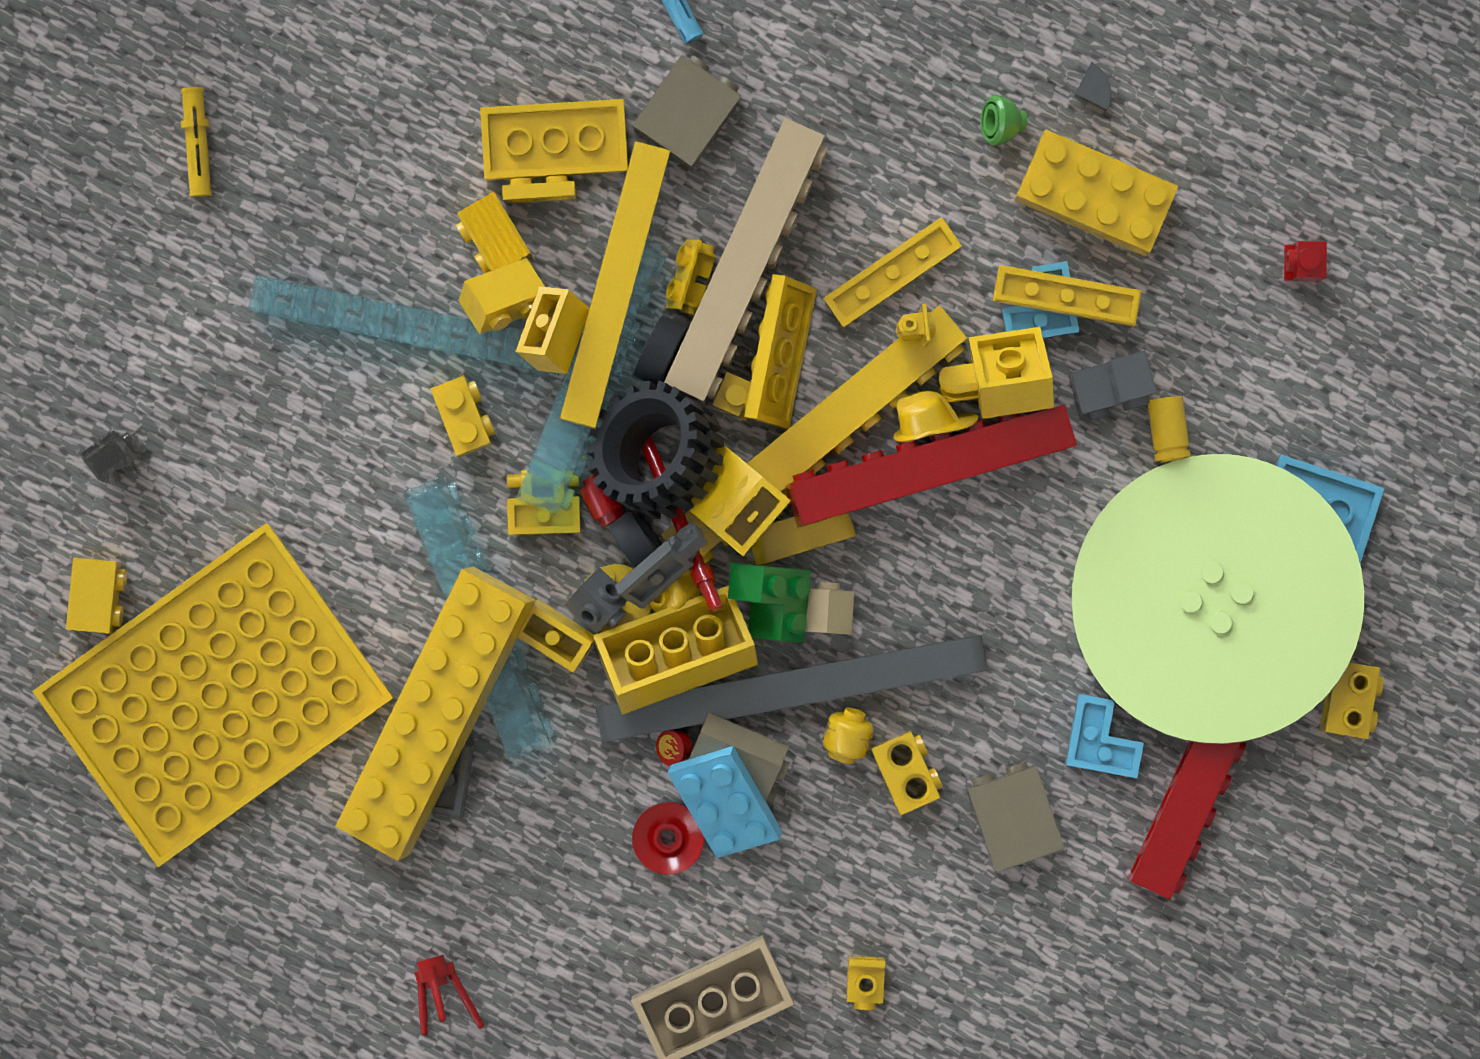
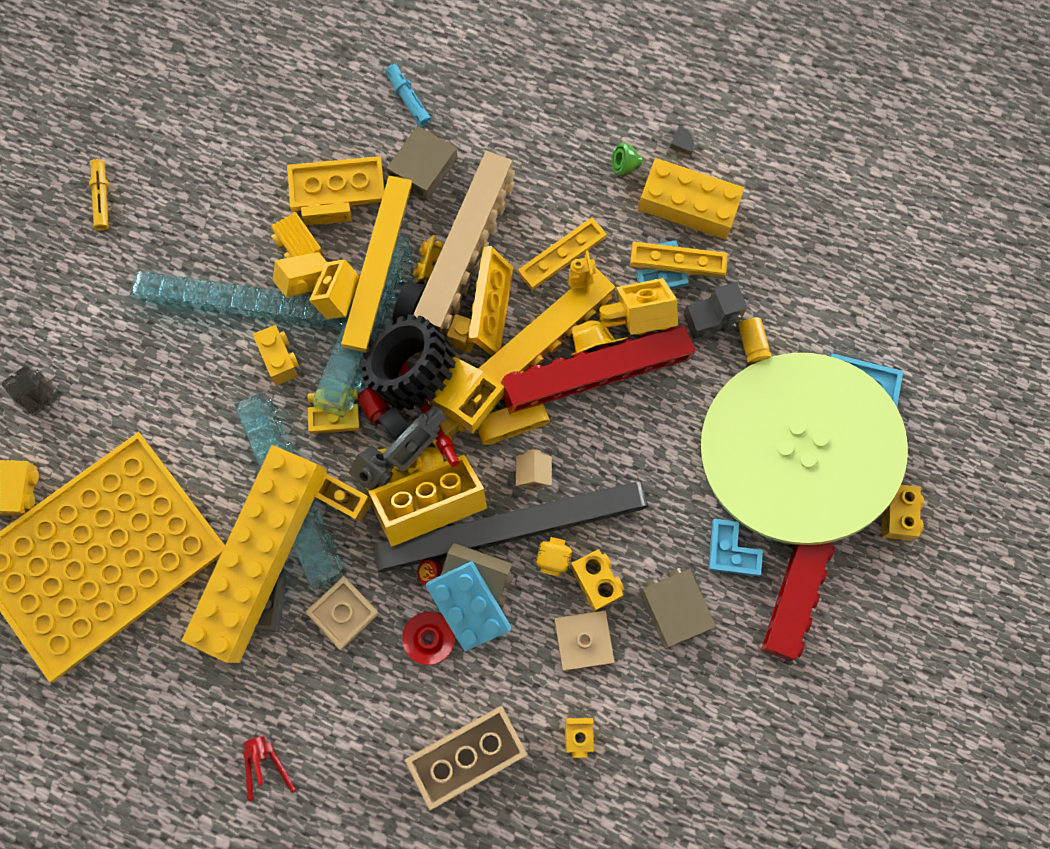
camera: 10 degrees left, 15 degrees down
(551, 796) = (342, 613): none -> tan plate
(776, 599) = (497, 460): green brick -> none
(882, 852) = (584, 640): none -> tan plate
(1305, 261) = (831, 233): red brick -> none

